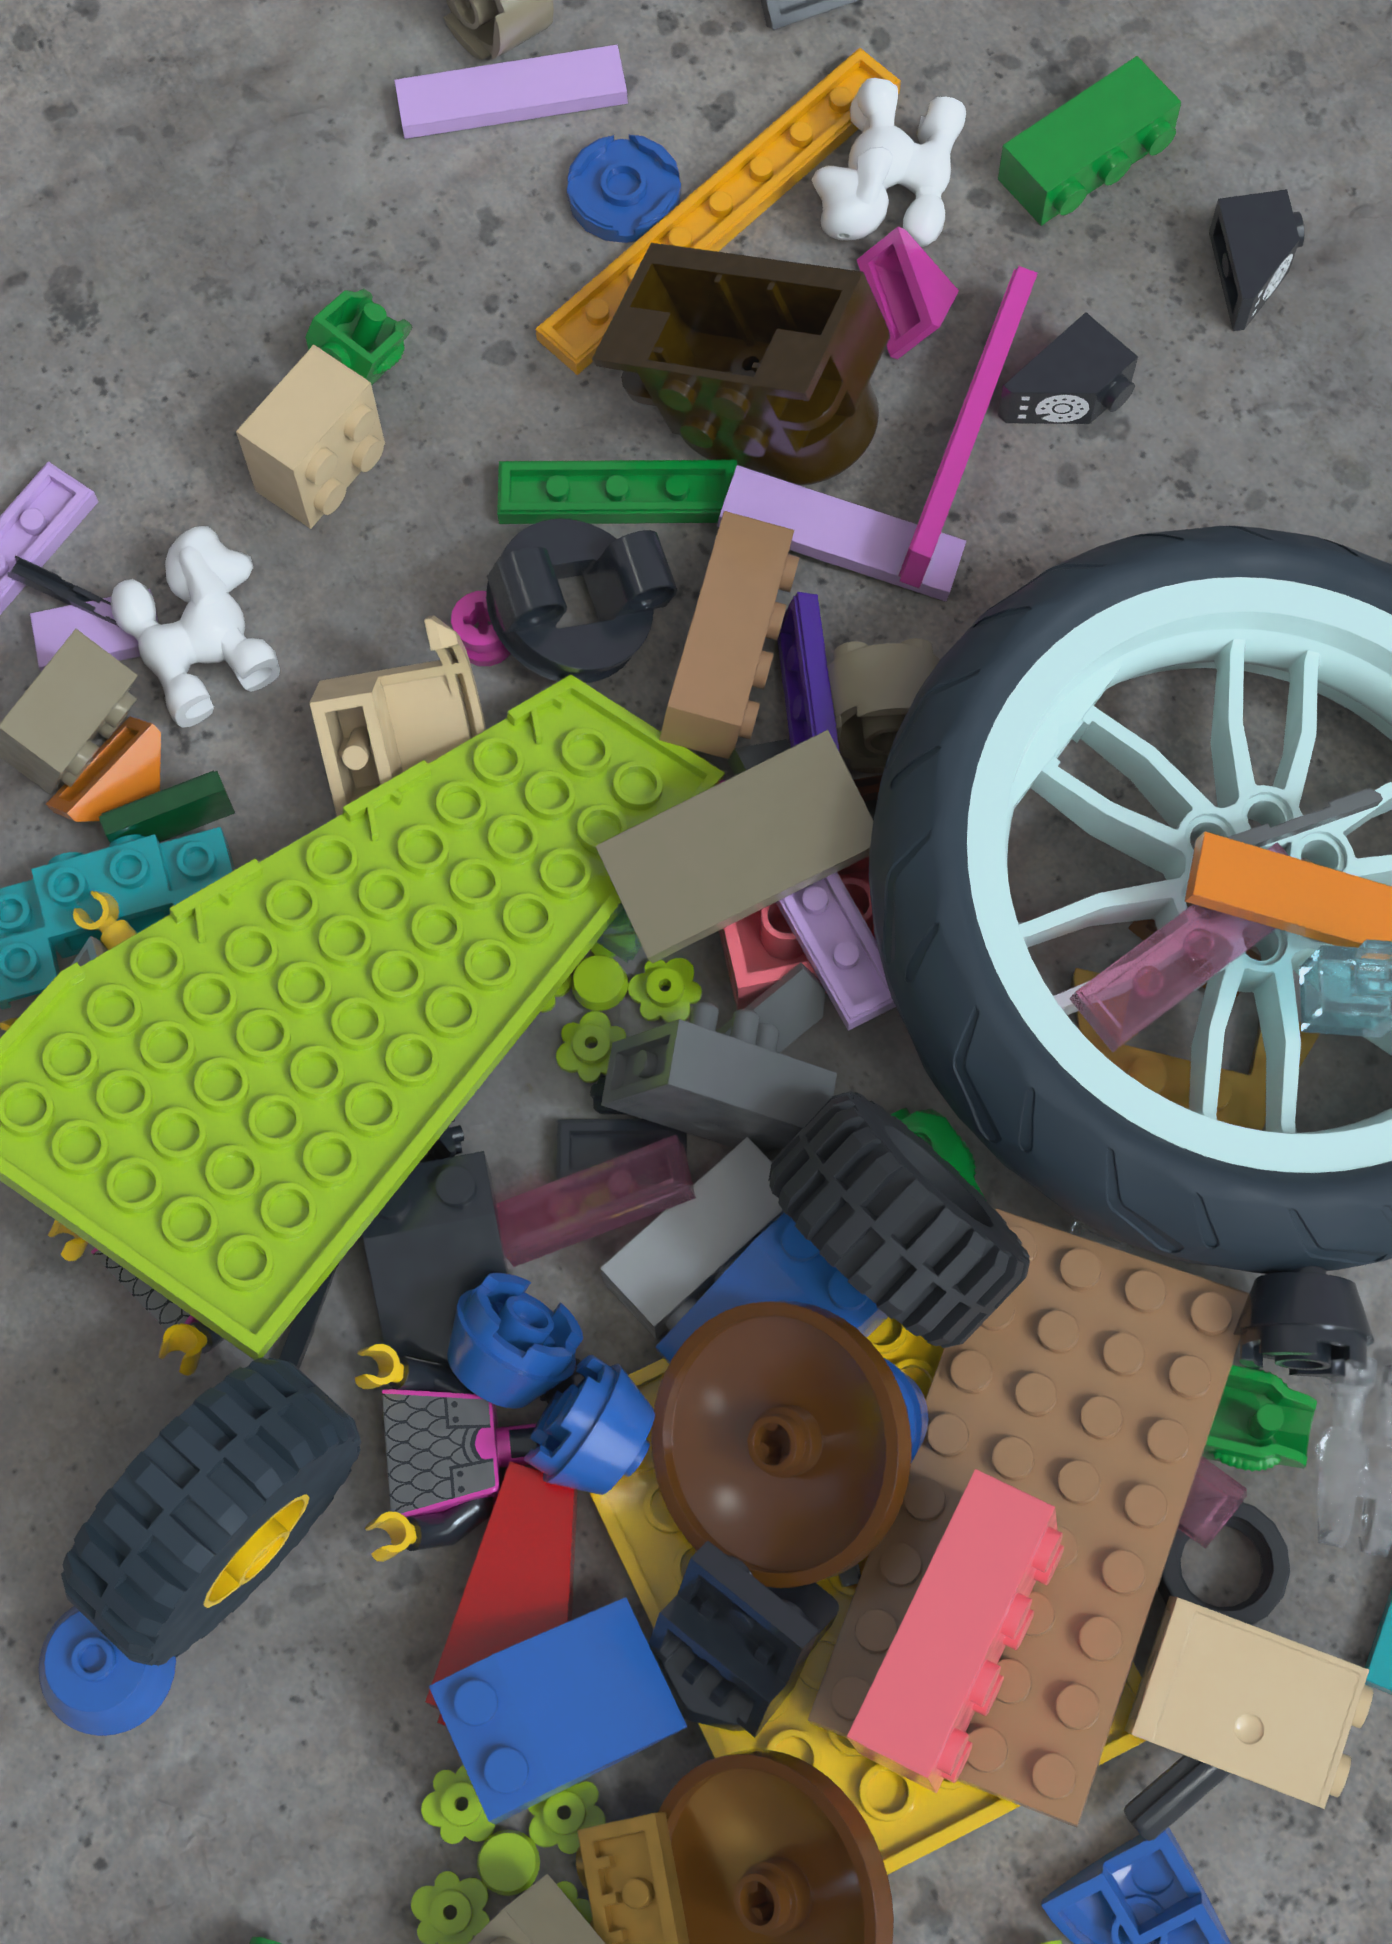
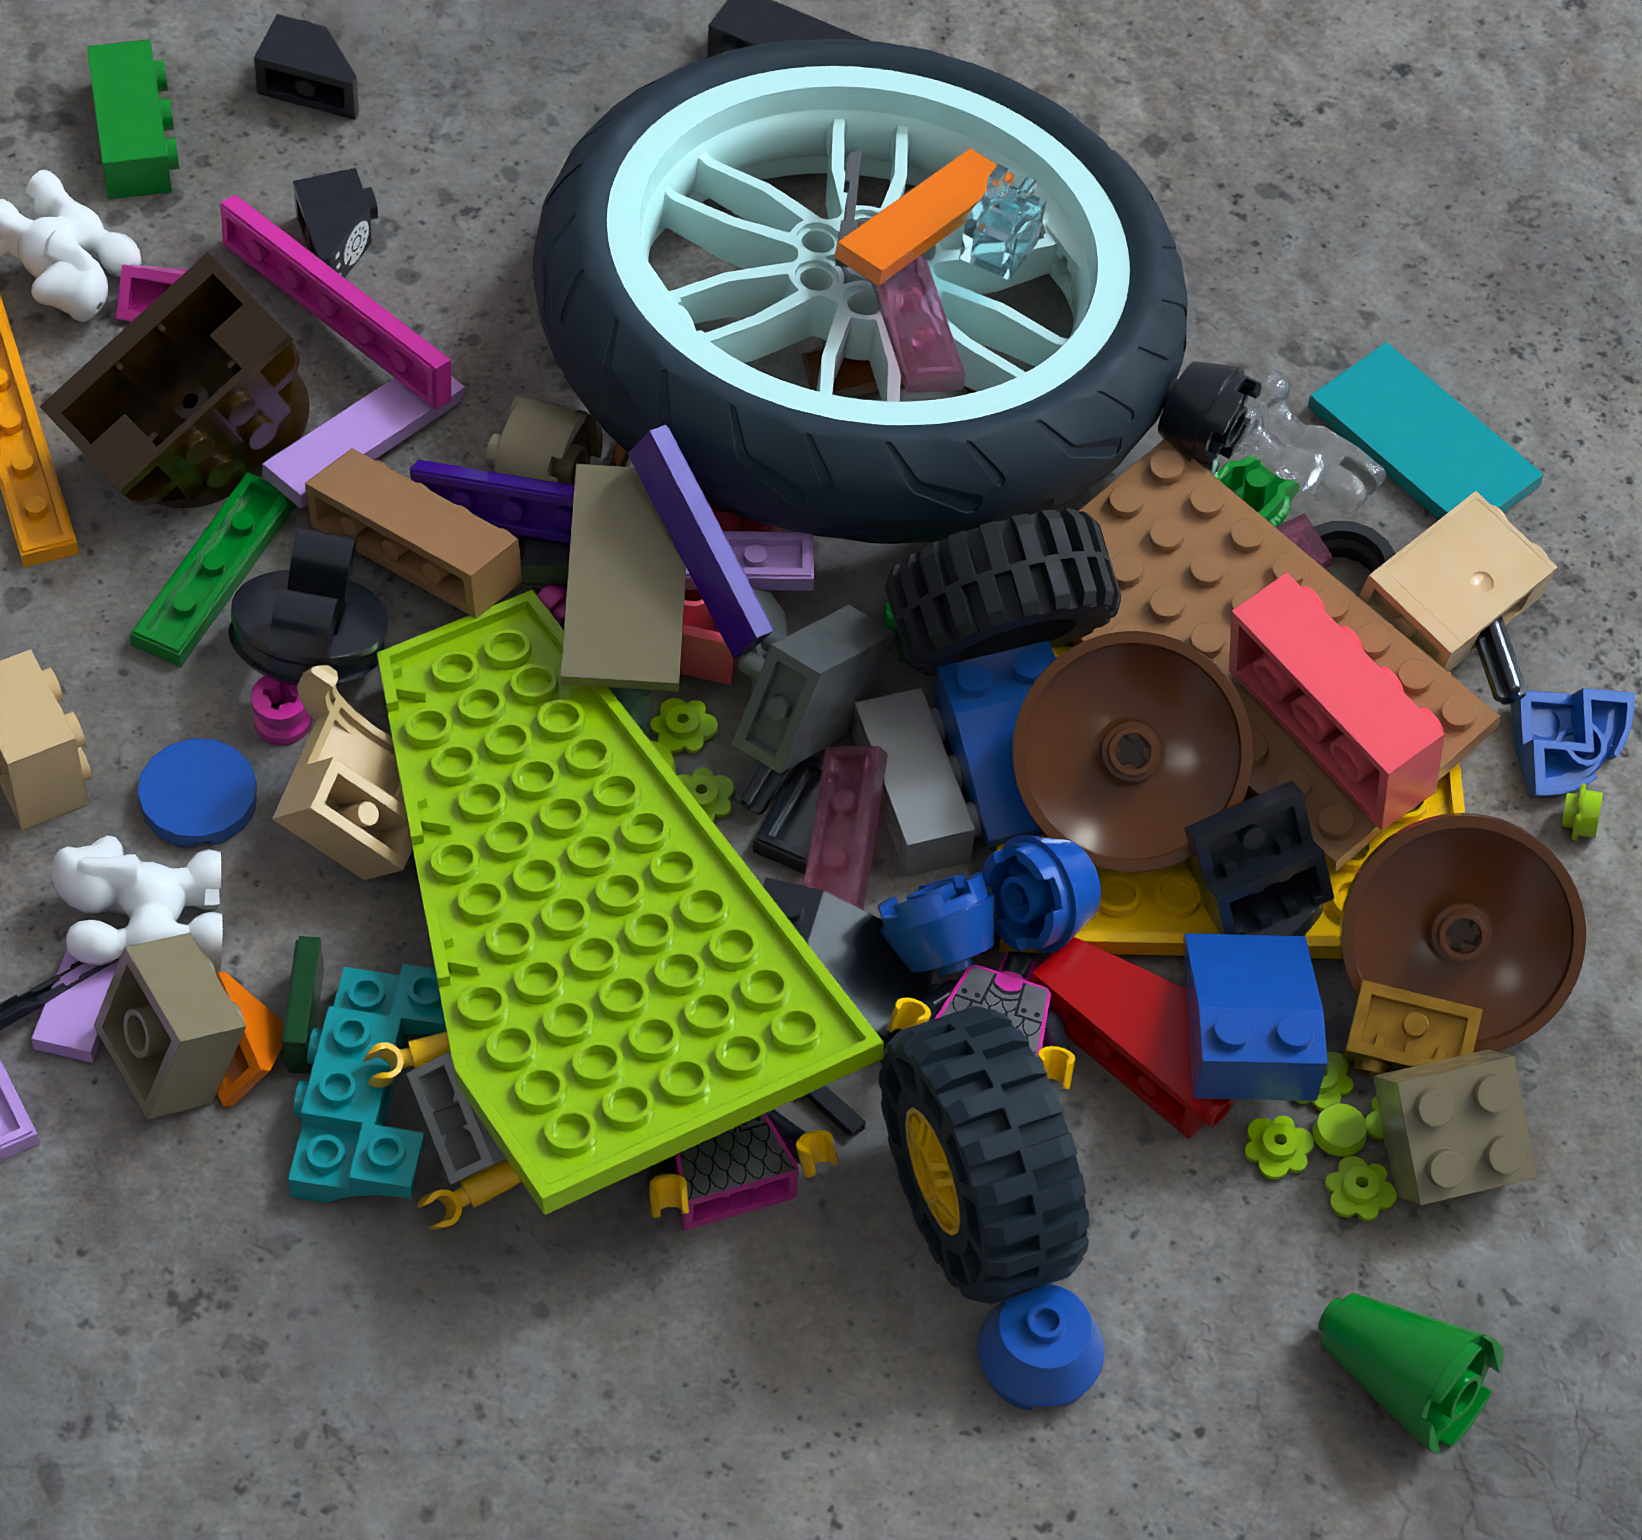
camera: 70 degrees left, 15 degrees down
(360, 609) = (197, 792): none -> blue tile
(793, 892) = (700, 541): none -> dark purple tile

